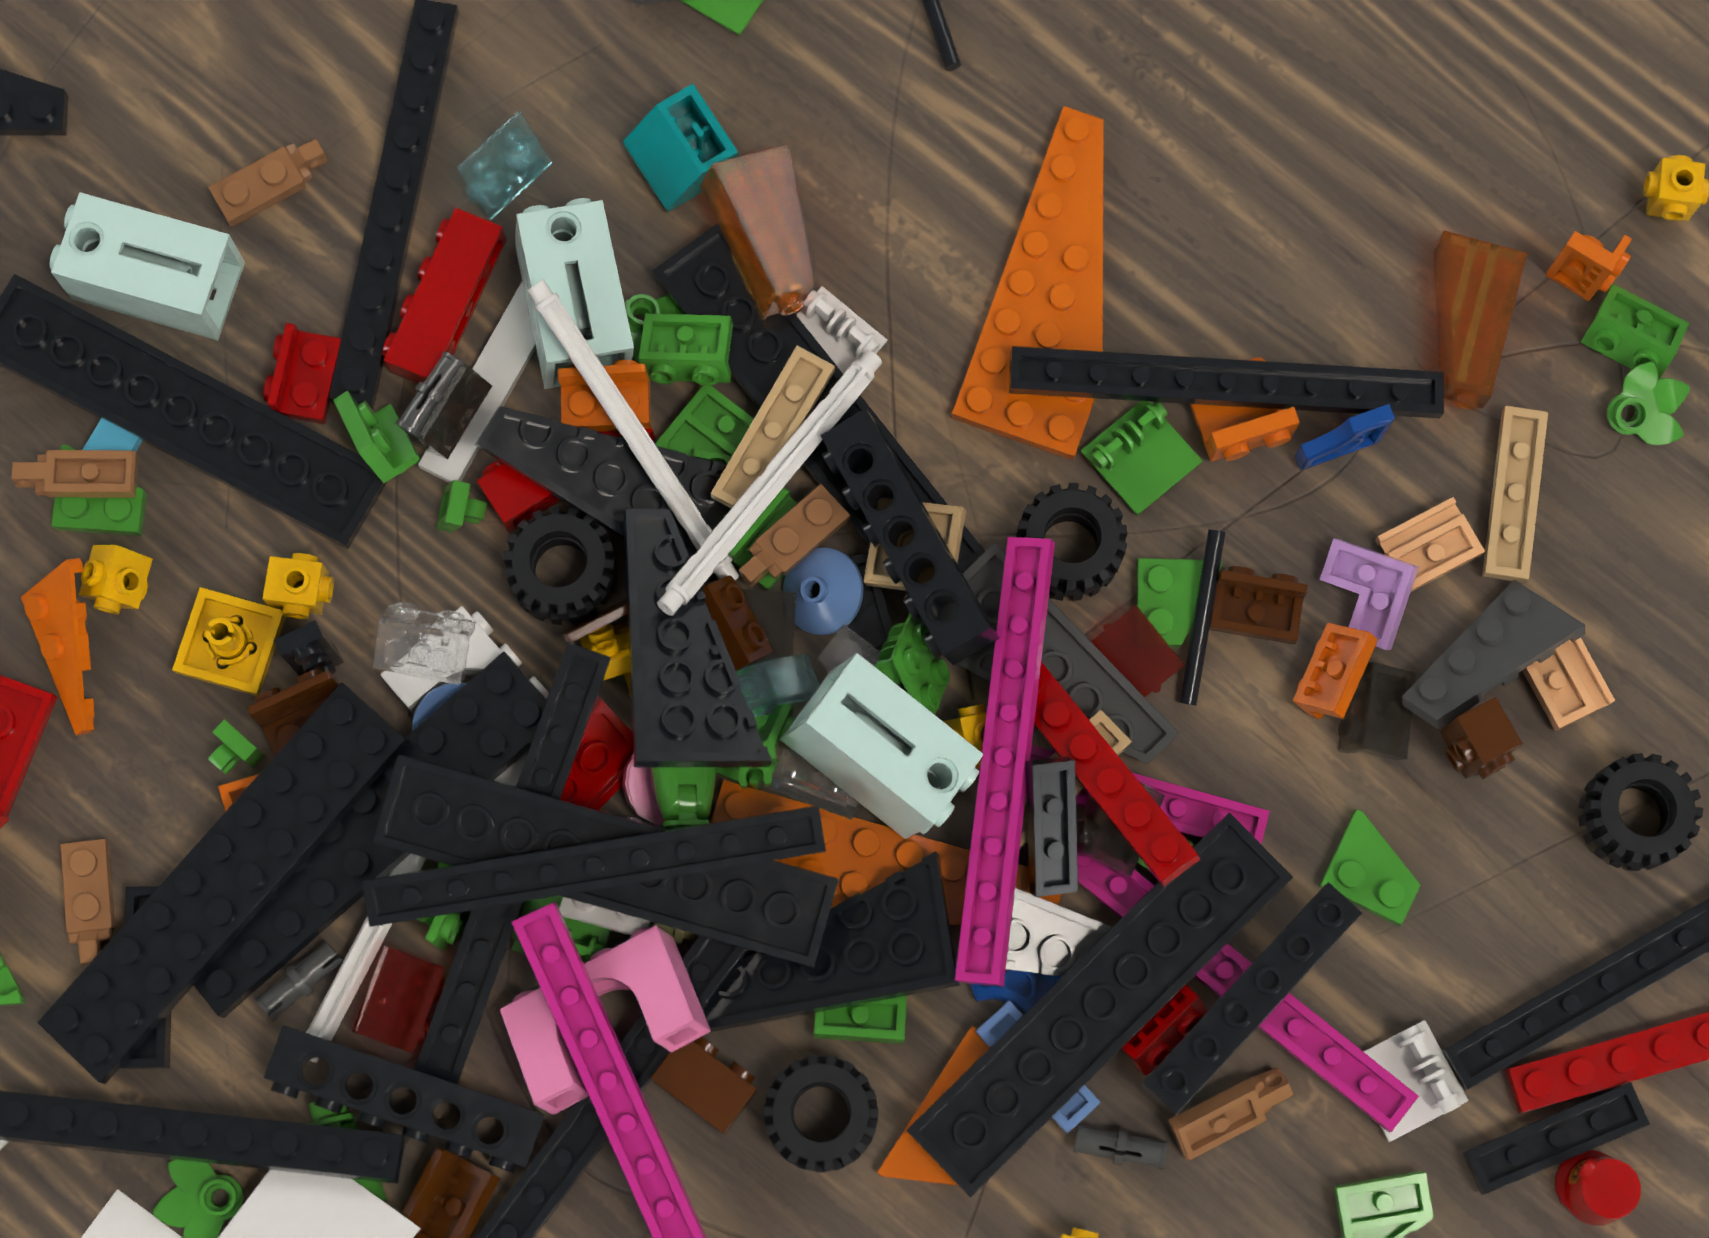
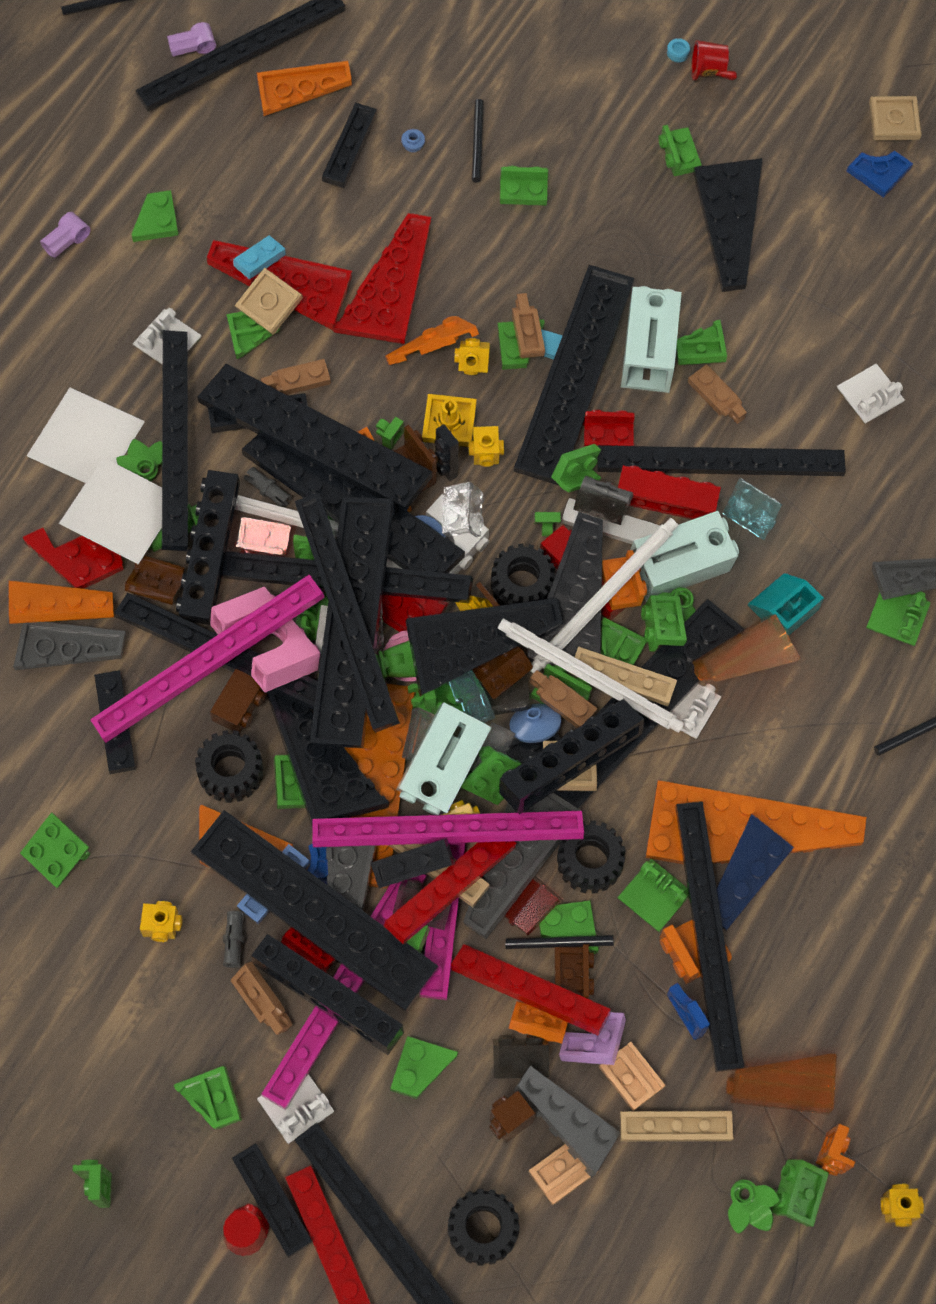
camera: 80 degrees right, 10 degrees down
(171, 180) = (702, 346): none -> bright green wing
(1124, 297) = (750, 867): none -> dark blue wing
(1277, 676) = (531, 989): none -> red plate

